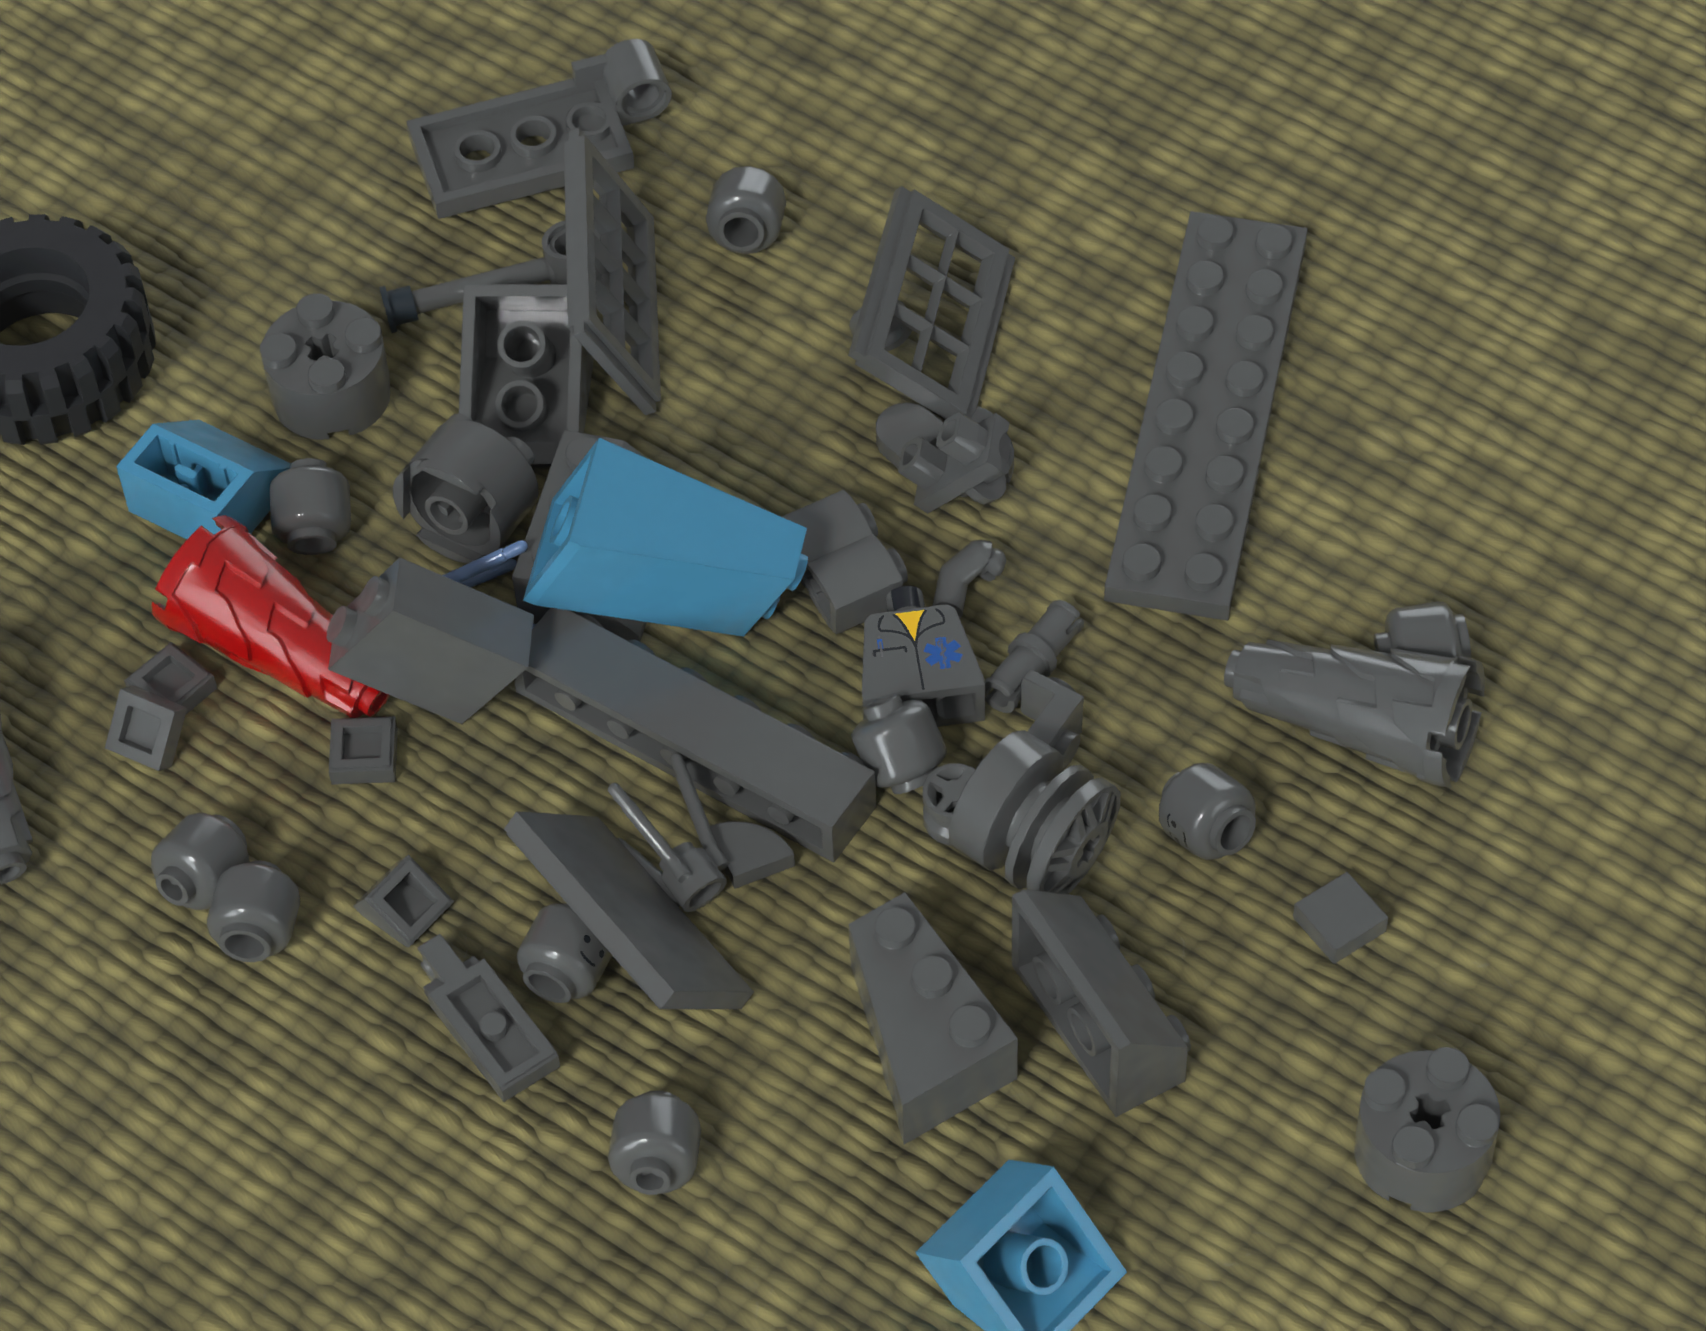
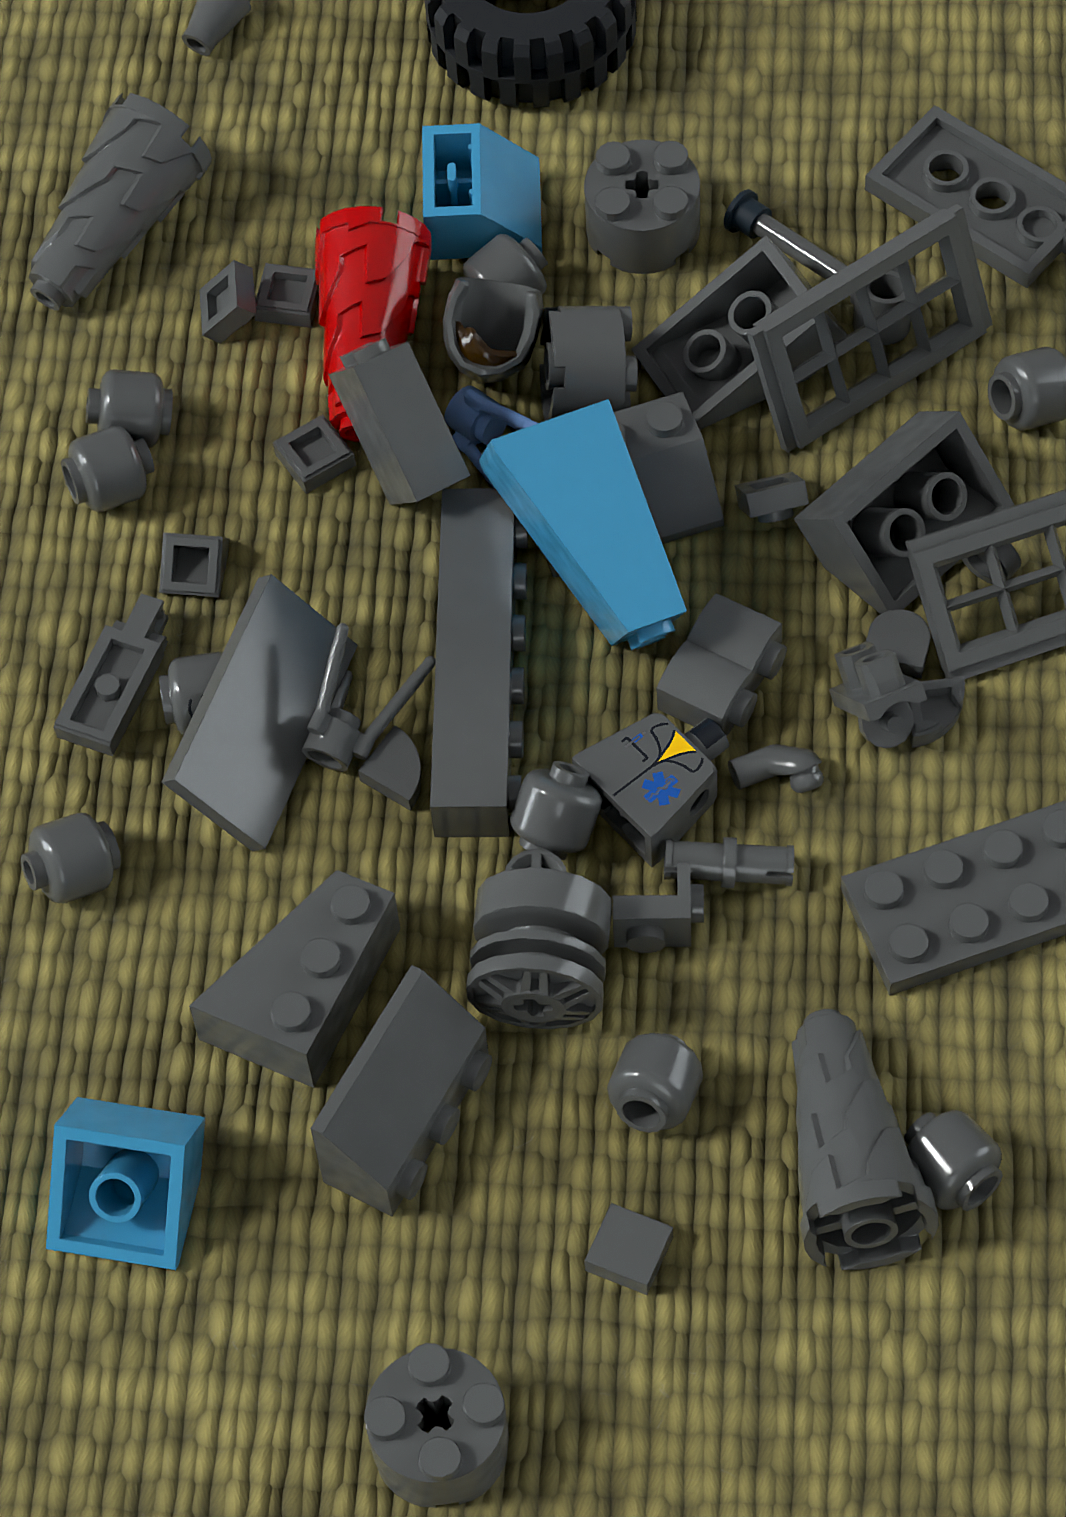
camera: 60 degrees right, 5 degrees up
(374, 526) = (491, 327): none -> dark grey piece
(700, 437) = (772, 497): none -> dark grey plate
(789, 356) = (906, 488): none -> dark grey slope

